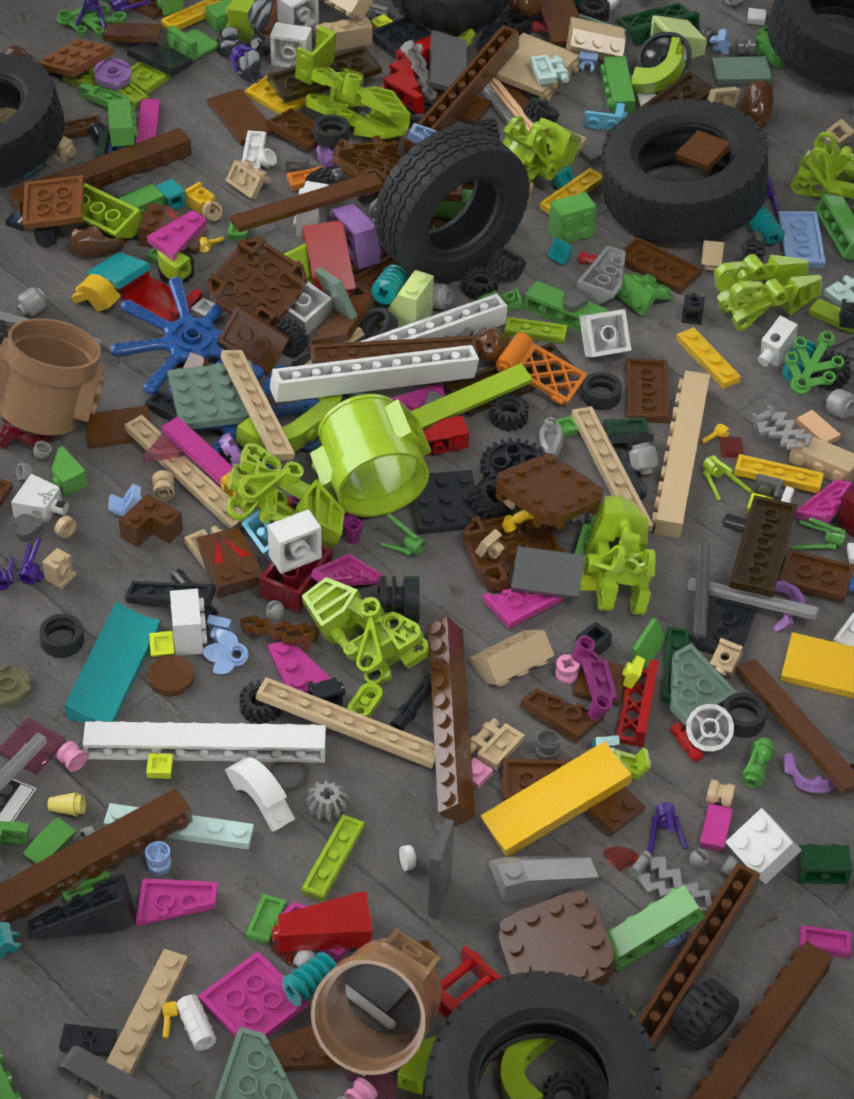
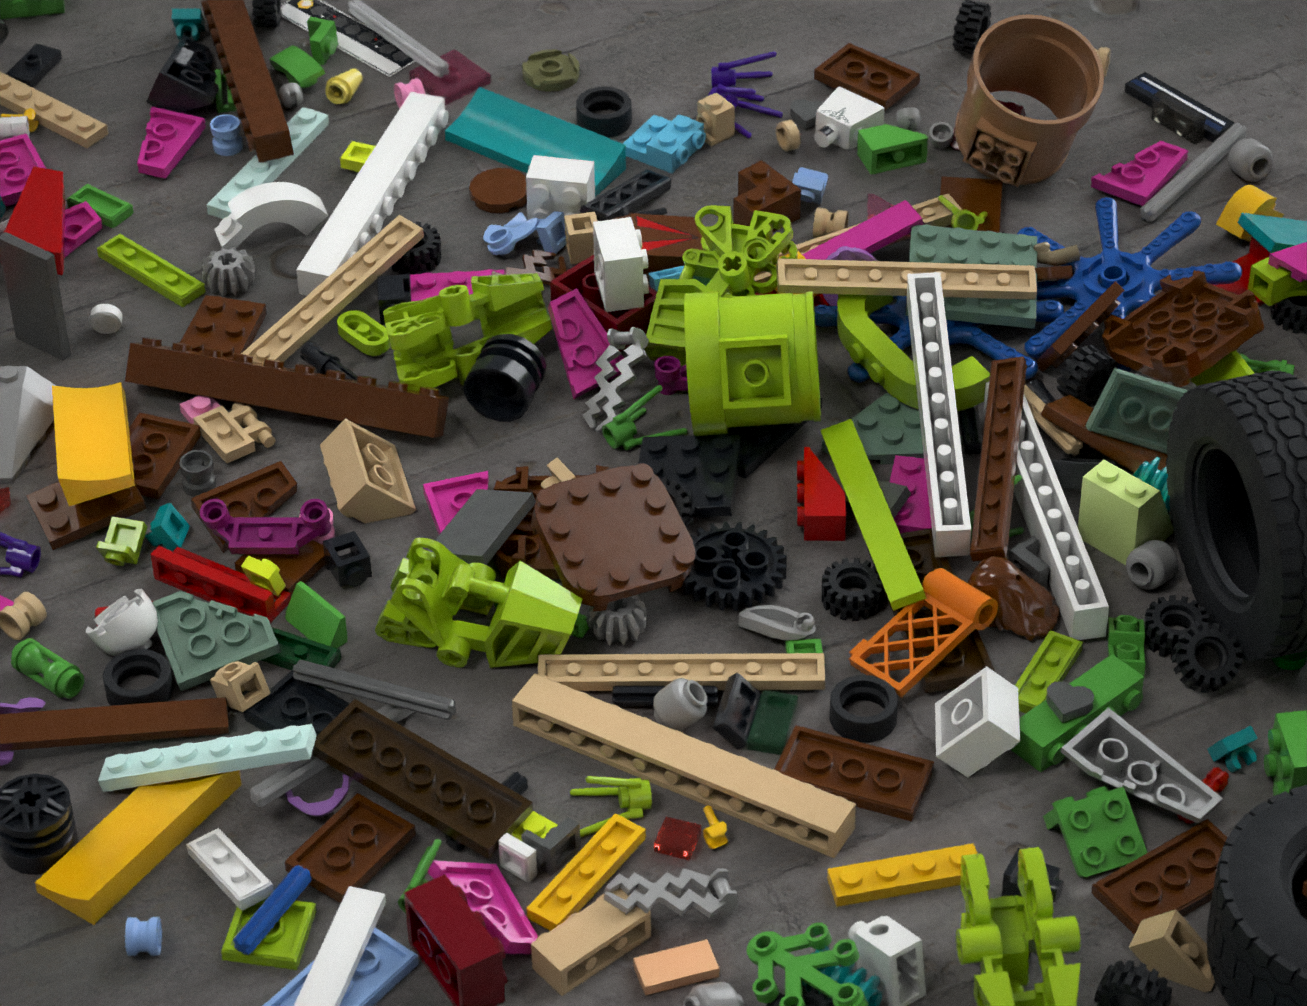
camera: 110 degrees right, 5 degrees down
(87, 594) = (666, 142): none -> medium azure plate
(163, 405) = (963, 218): none -> lime plant
(185, 359) = (1056, 257): none -> dark tan arm
(229, 601) = (579, 236): none -> tan brick
(383, 551) = (611, 390): none -> light grey piece
(391, 789) = (224, 325): none -> reddish brown plate
(799, 646) = (207, 757): none -> light aqua plate

